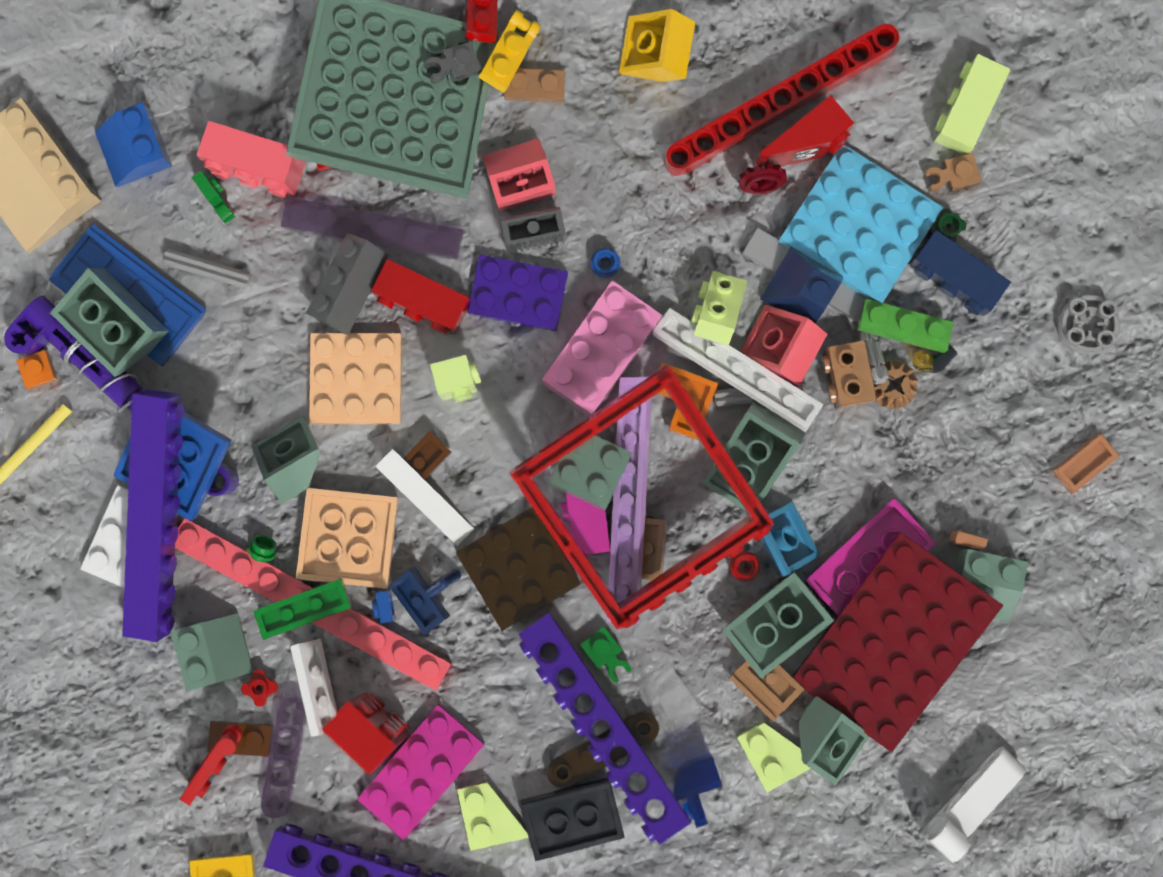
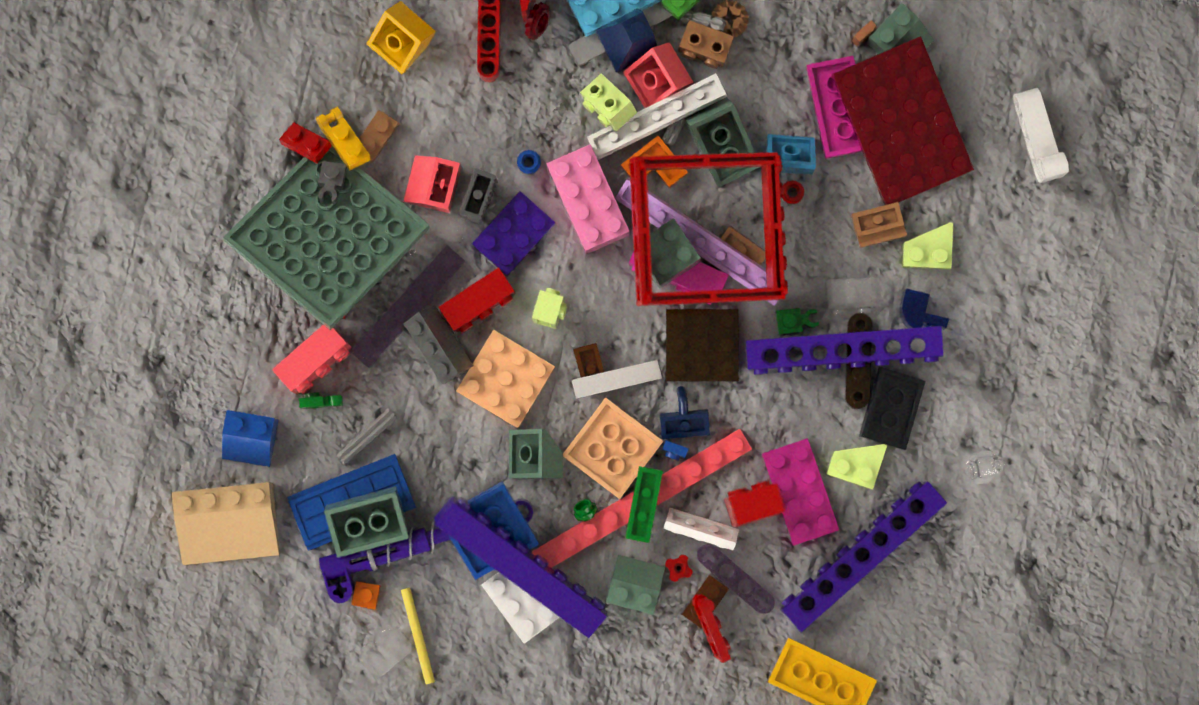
camera: 55 degrees left, 0 degrees up
(778, 624) = (844, 192): sand green slope -> none
(829, 740) = (941, 205): sand green slope -> none

